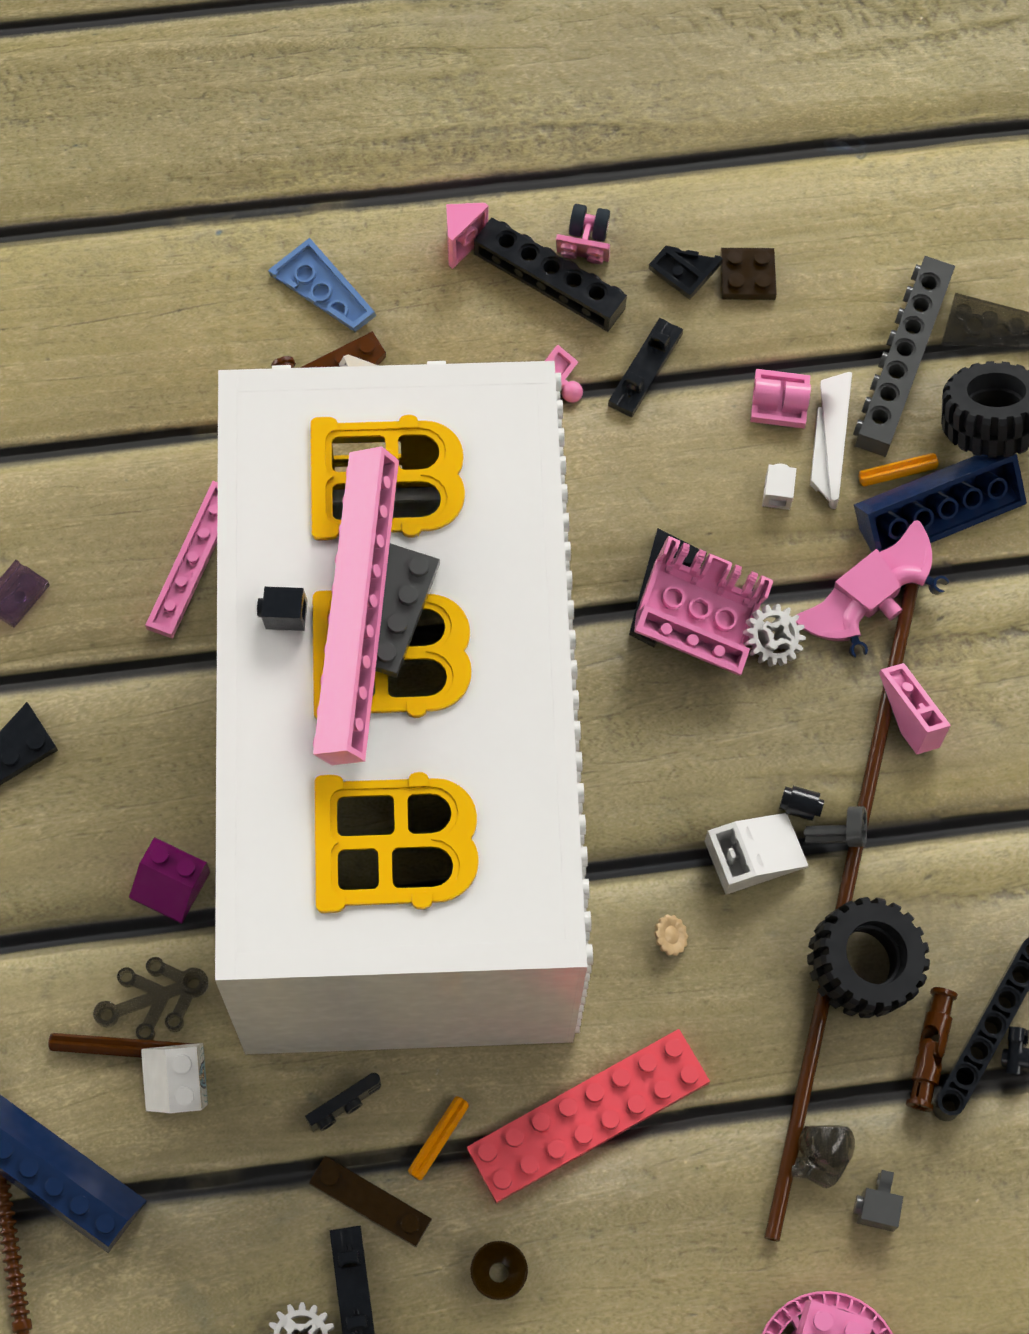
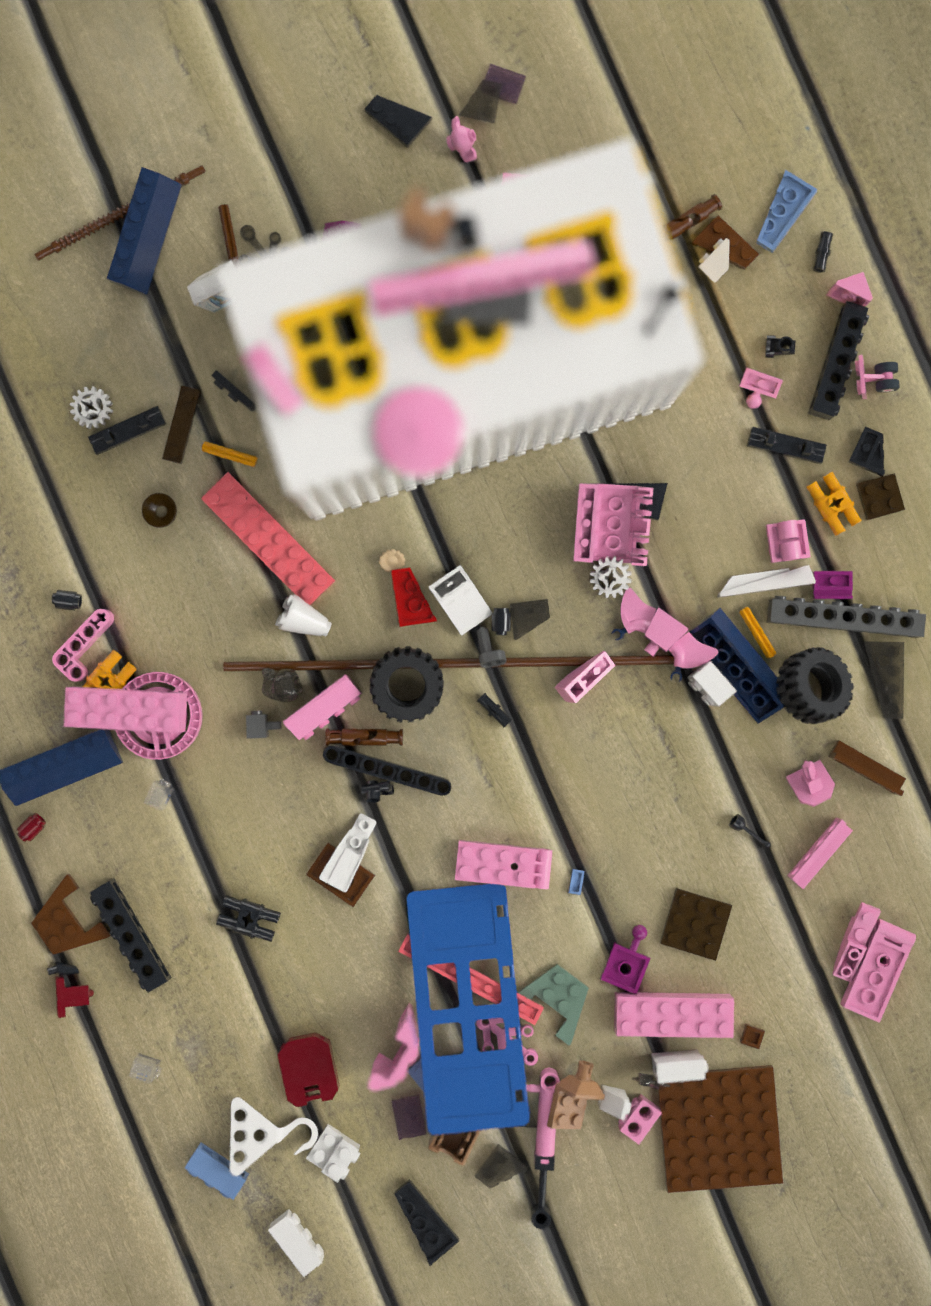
camera: 75 degrees right, 20 degrees up
(34, 623) = (484, 102): none -> clear smoke wing
(79, 666) = (462, 140): none -> bright pink piece
(256, 657) = (426, 226): none -> medium nougat piece
(394, 255) = (823, 252): none -> black pin
(412, 935) = (273, 378): none -> bright pink slope
(454, 374) = (671, 295): none -> hinge
(504, 344) = (774, 346): none -> black plate
(549, 754) = (418, 432): none -> bright pink dish
(725, 1093) = (302, 618): none -> white cone
(737, 324) = (844, 505): none -> light orange pin
(737, 926) = (409, 600): none -> red wing
(779, 486) = (721, 555): white brick -> none
(802, 764) = (527, 616): none -> clear smoke wing
(856, 355) = (833, 585): none -> magenta plate
(873, 1097) = (323, 707): none -> bright pink slope
(916, 858) = (494, 710): none -> black pin
(962, 541) = (711, 684): none -> white brick

